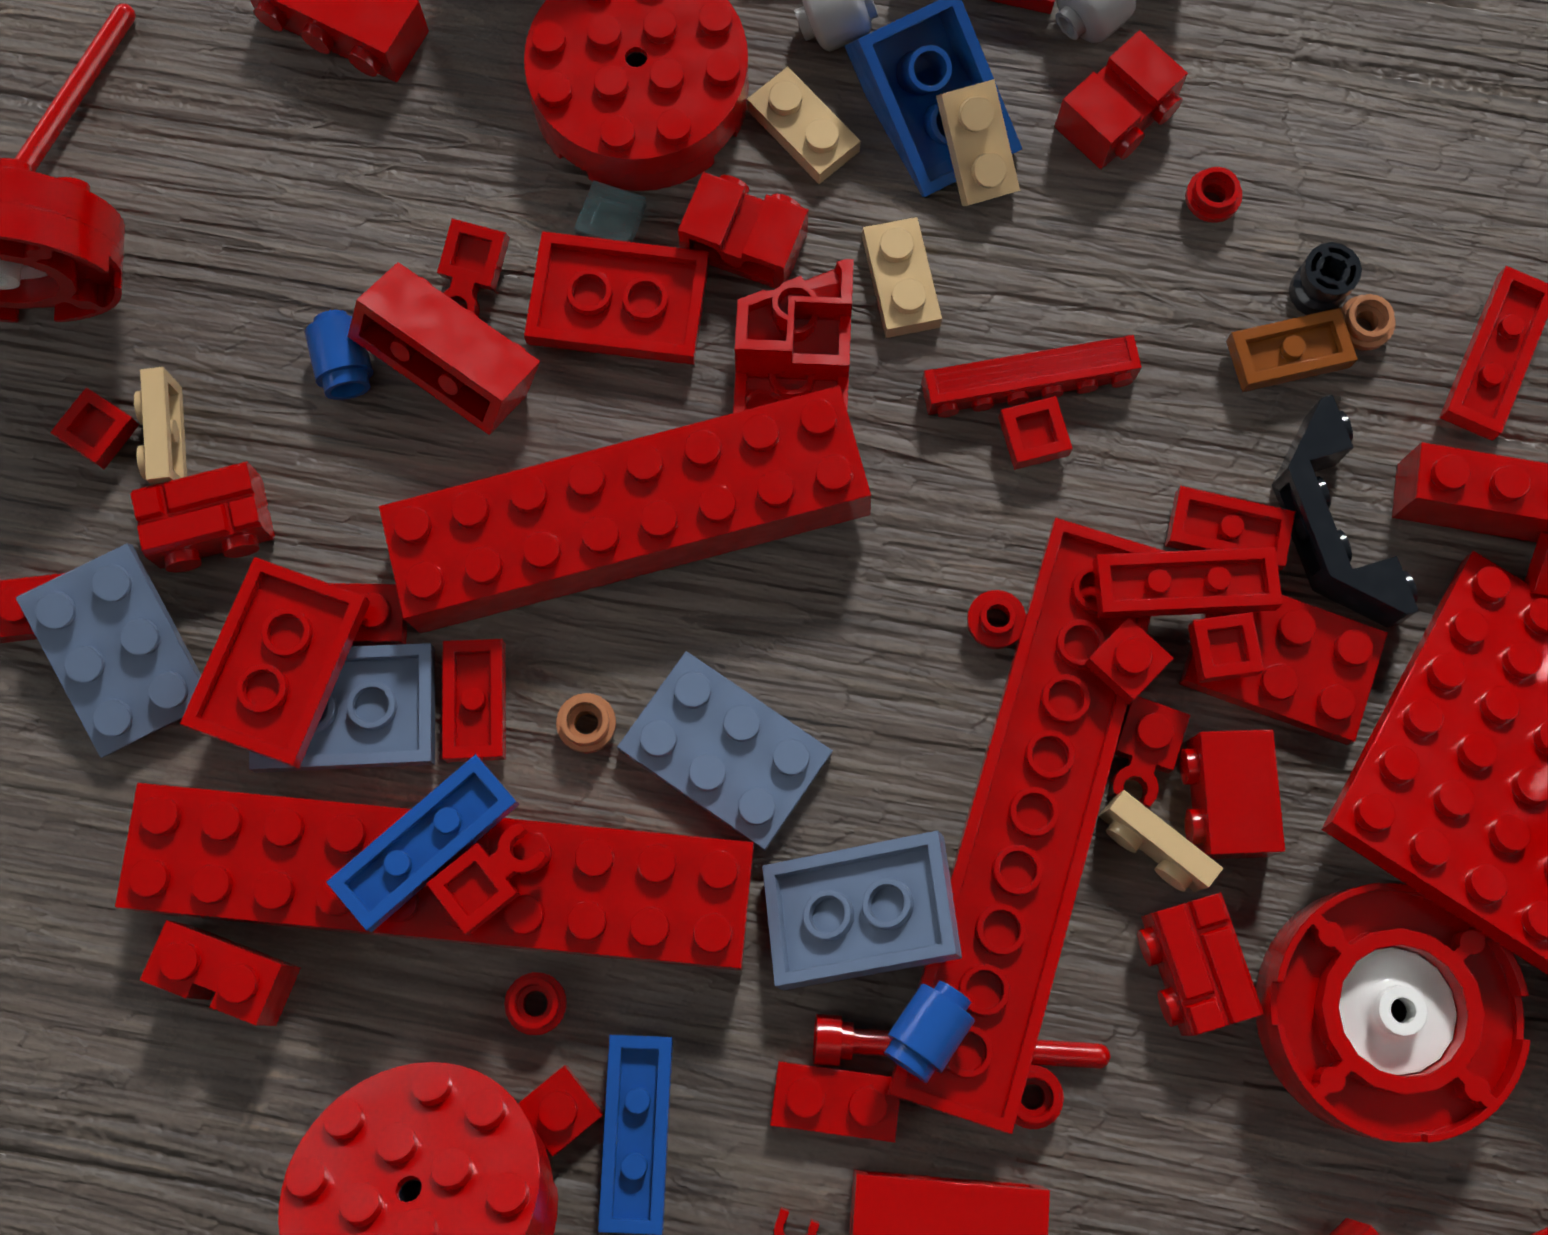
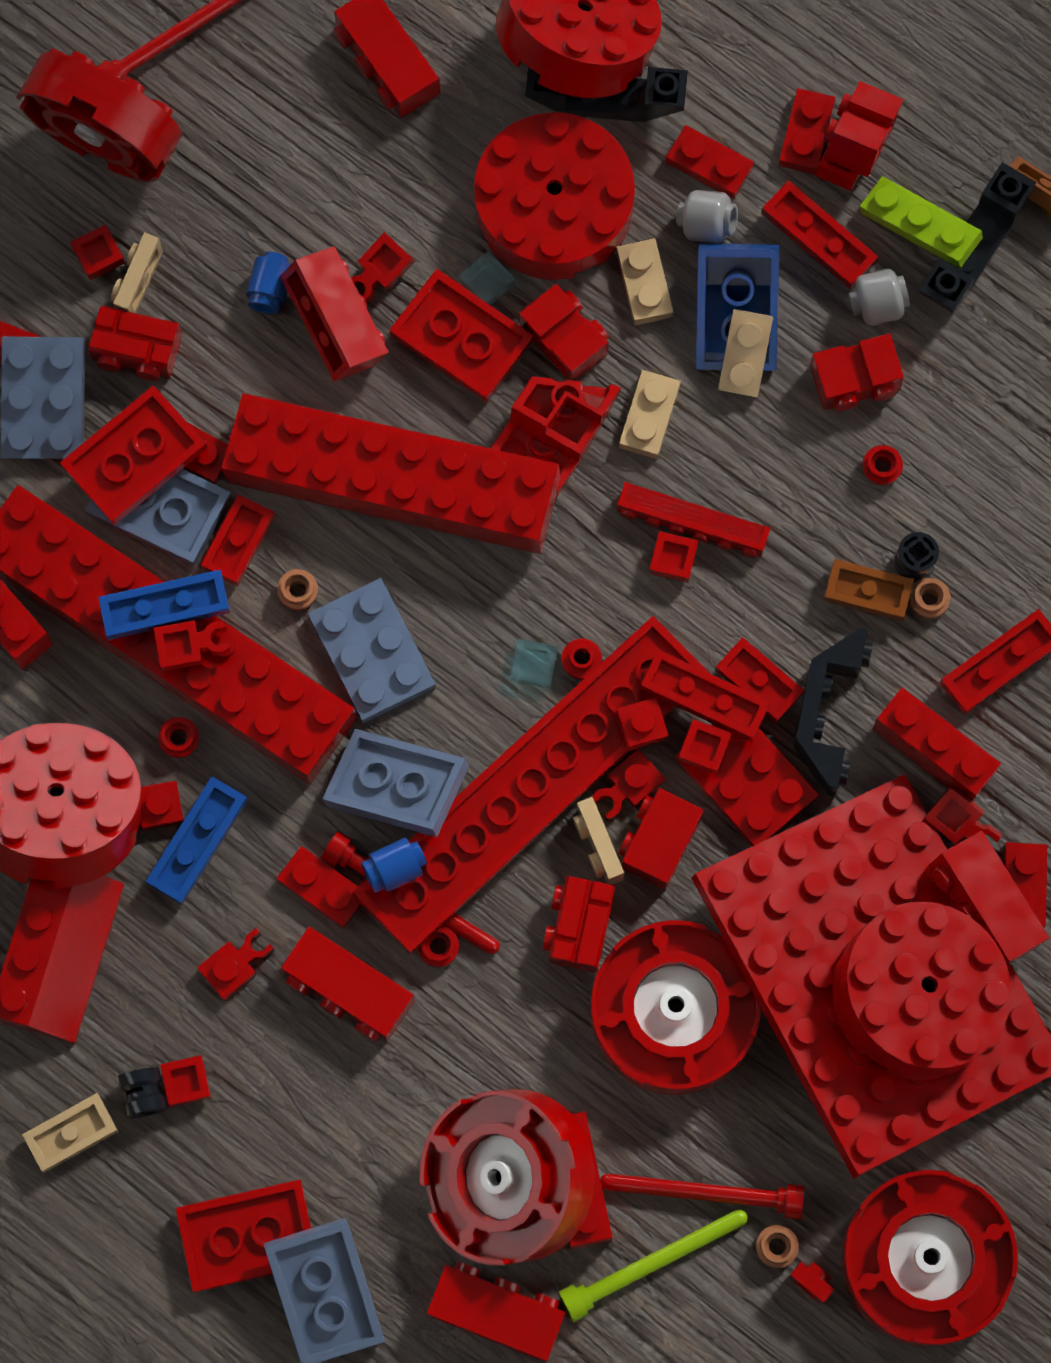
camera: 30 degrees right, 0 degrees up
(938, 656) = (534, 663): none -> clear light blue tile

